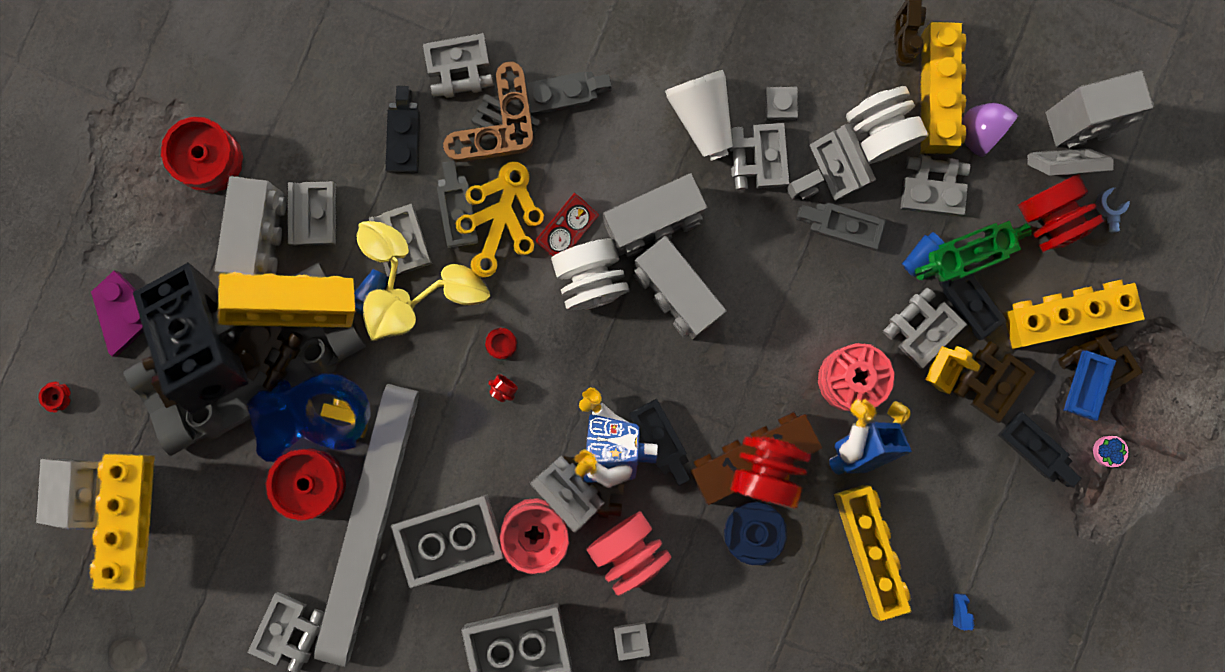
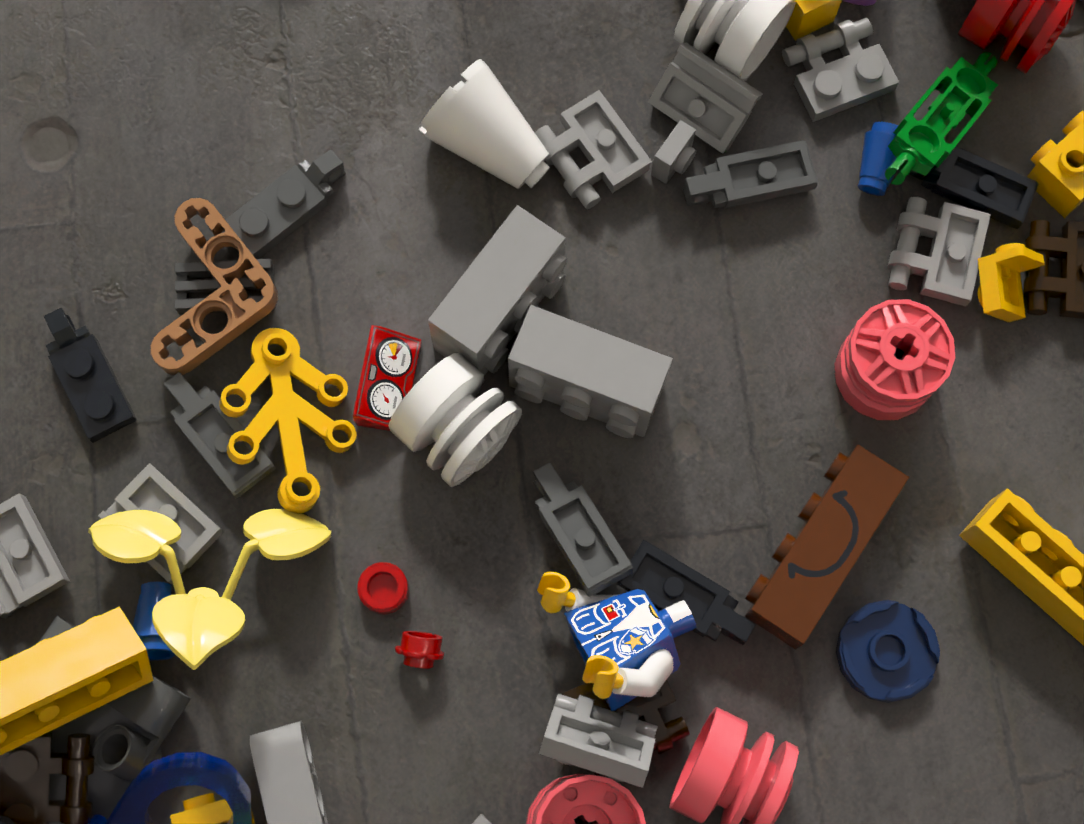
camera: 30 degrees left, 10 degrees down
(458, 56) = (110, 234): light grey plate -> none
(623, 374) = (580, 532): none -> dark grey hinge
(771, 471) = (865, 541): red wheel -> none
(781, 103) = (580, 71): light grey plate -> none
(873, 443) = (970, 431): torso -> none

